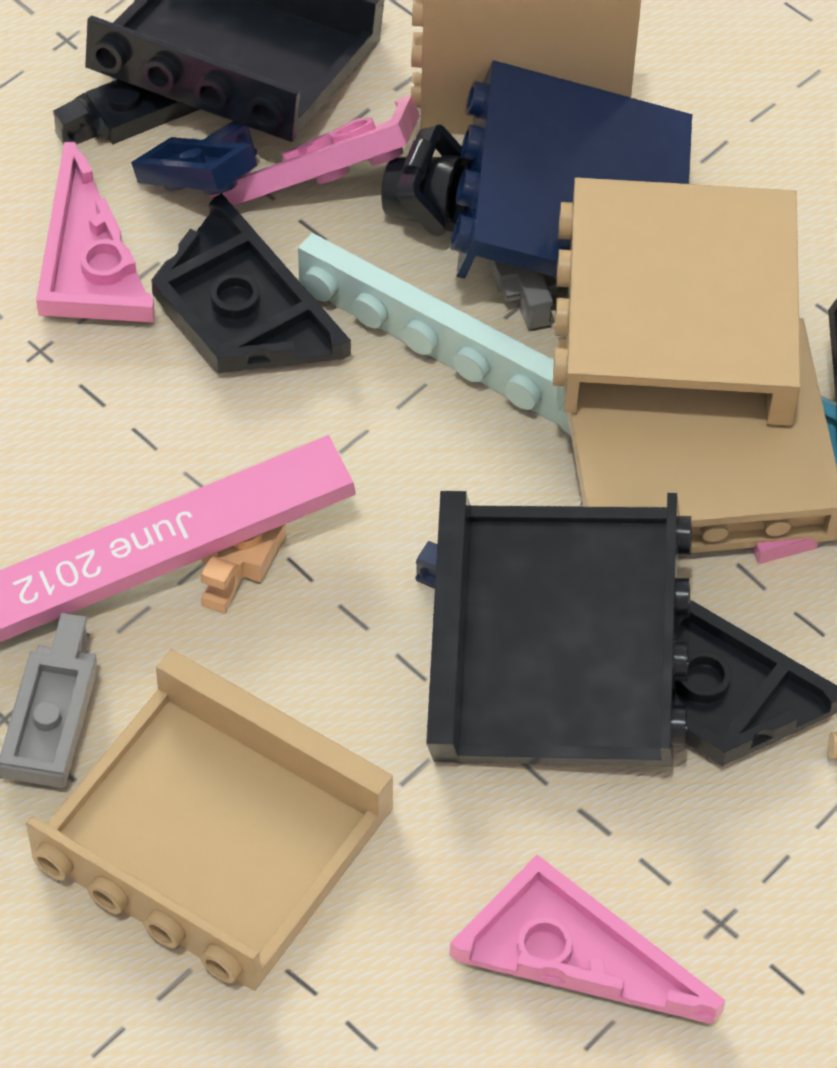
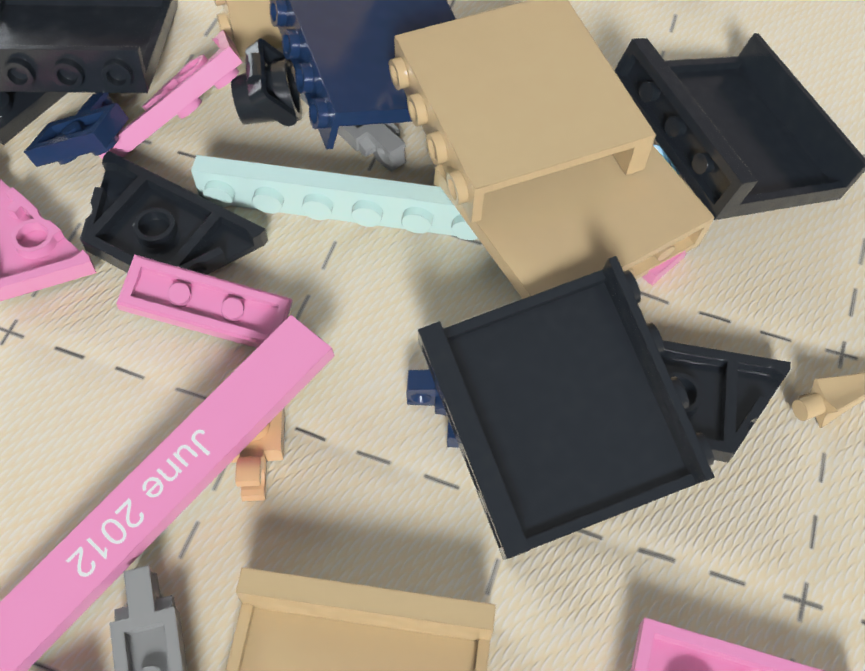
camera: 25 degrees left, 5 degrees up
(246, 390) = (201, 302): none -> bright pink tile

